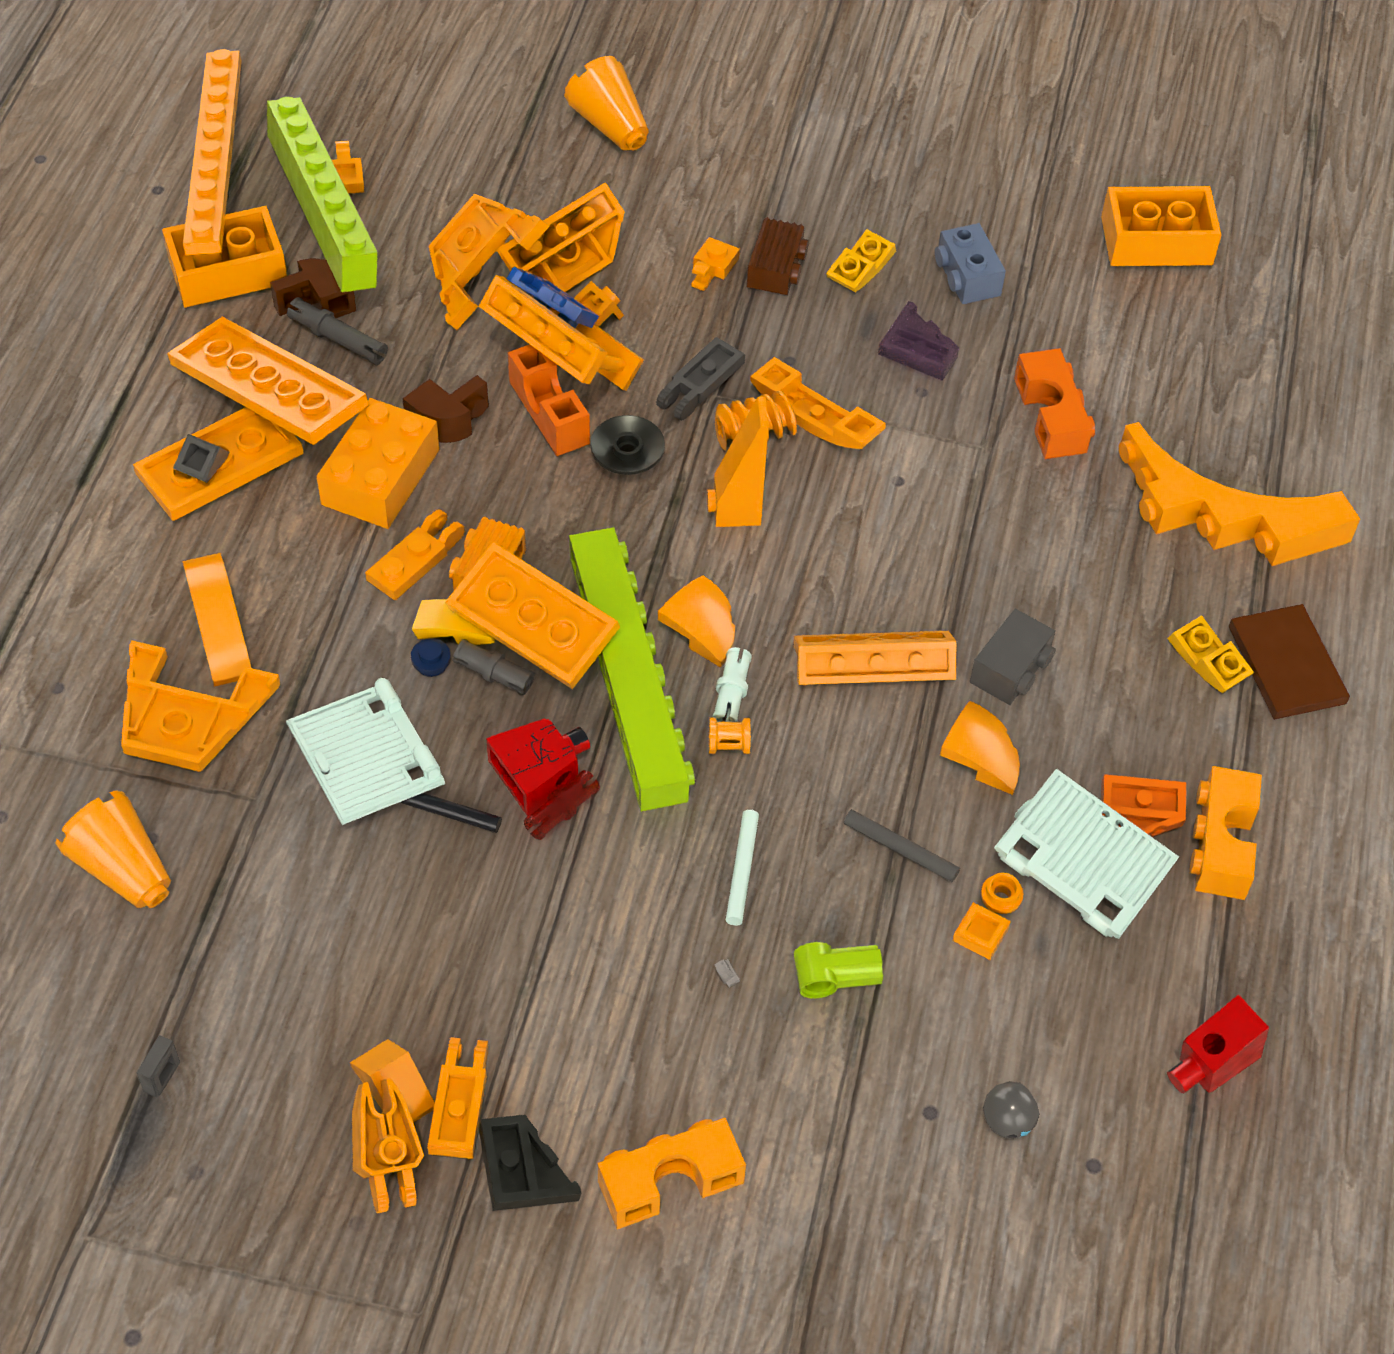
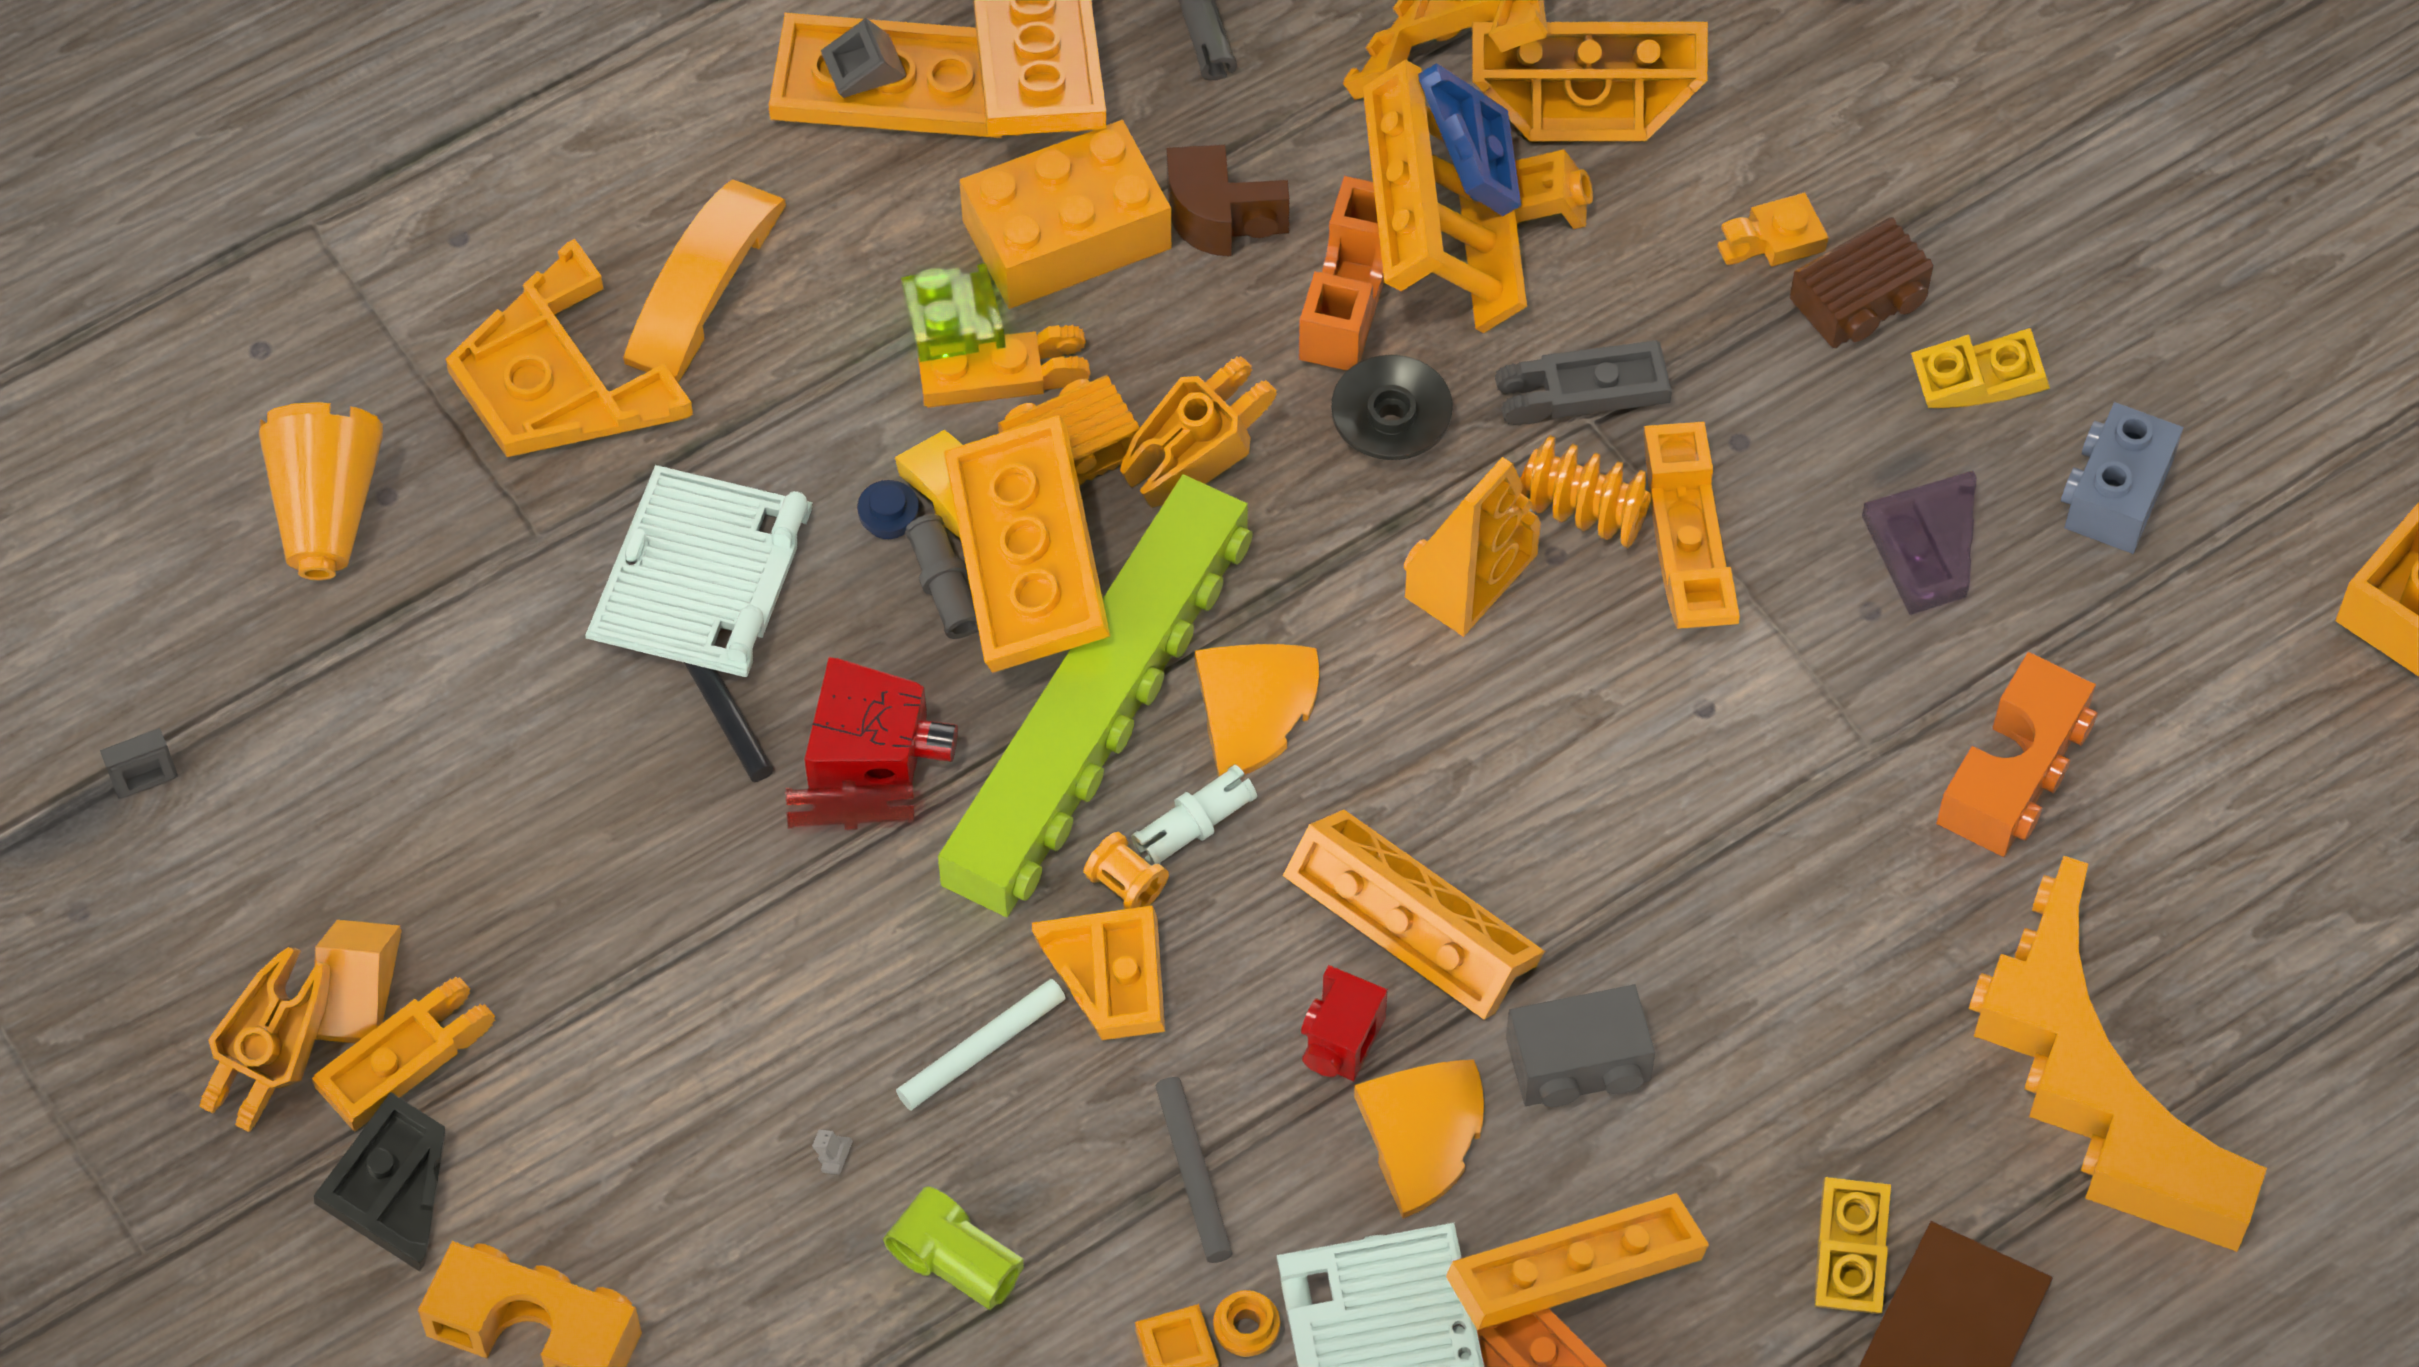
camera: 45 degrees right, 5 degrees up
(369, 544) = (952, 312): none -> clear neon green plate
(551, 515) = (1195, 431): none -> light orange hinge
(767, 784) = (1109, 968): none -> light orange wing
(901, 725) = (1343, 1024): none -> red brick
(1120, 746) = (1576, 1261): none -> light orange plate

